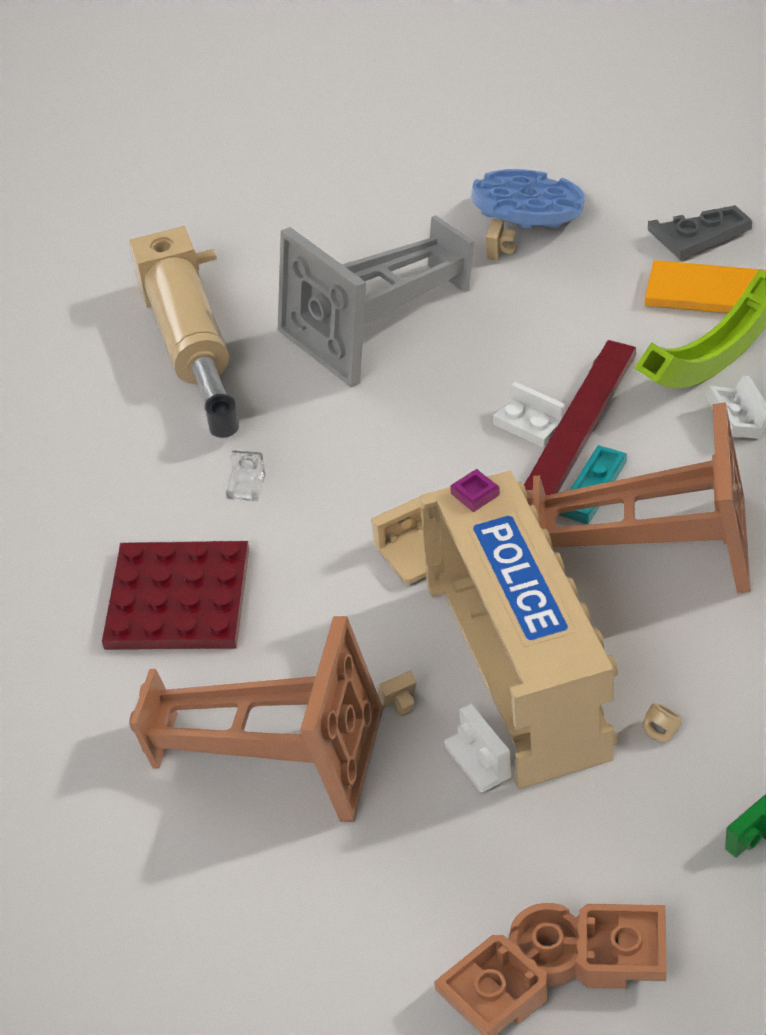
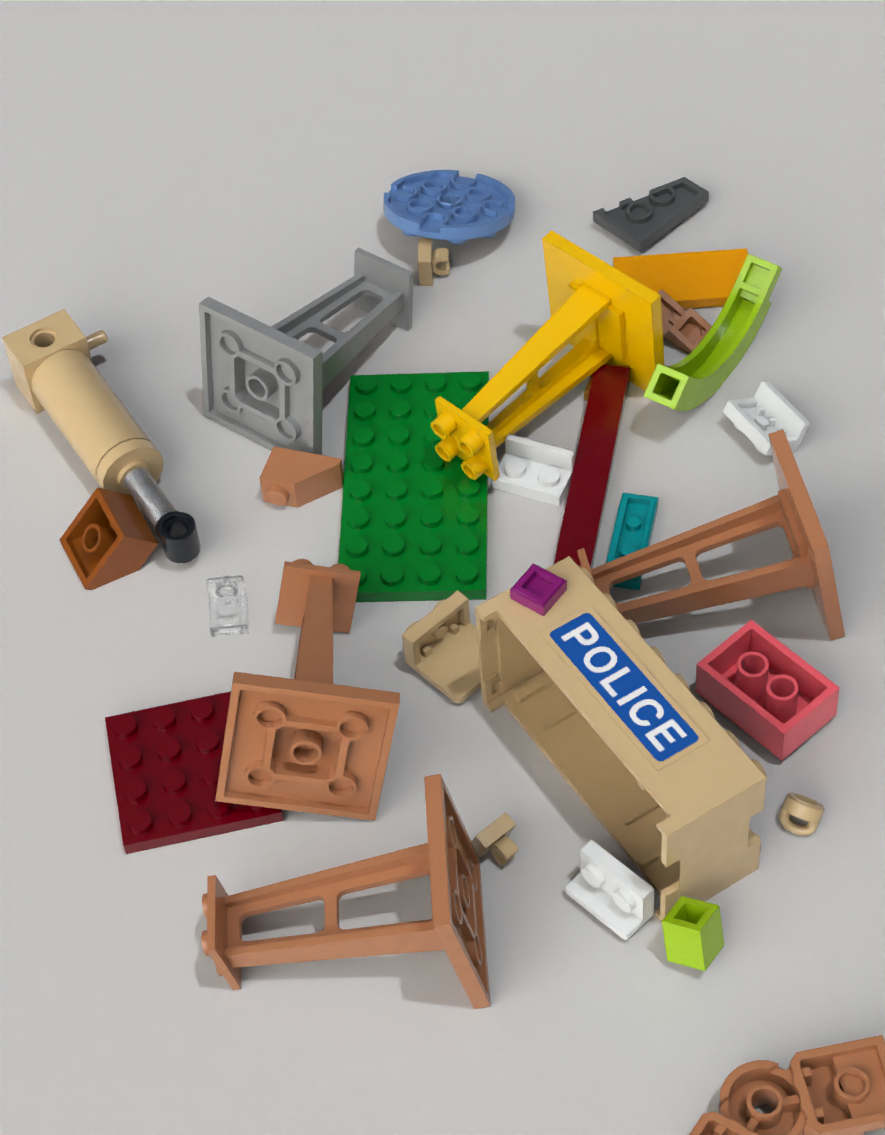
camera: 15 degrees left, 5 degrees up
(168, 408) = (108, 539): none -> dark orange slope
(266, 577) = (303, 737): none -> nougat piece
(335, 388) = (299, 477): none -> nougat slope
(428, 410) = (406, 512): none -> green plate
(534, 795) = (693, 933): none -> lime brick
(613, 293) = (591, 308): none -> yellow piece
(663, 618) = (766, 689): none -> coral brick
(686, 316) = (682, 327): none -> nougat slope

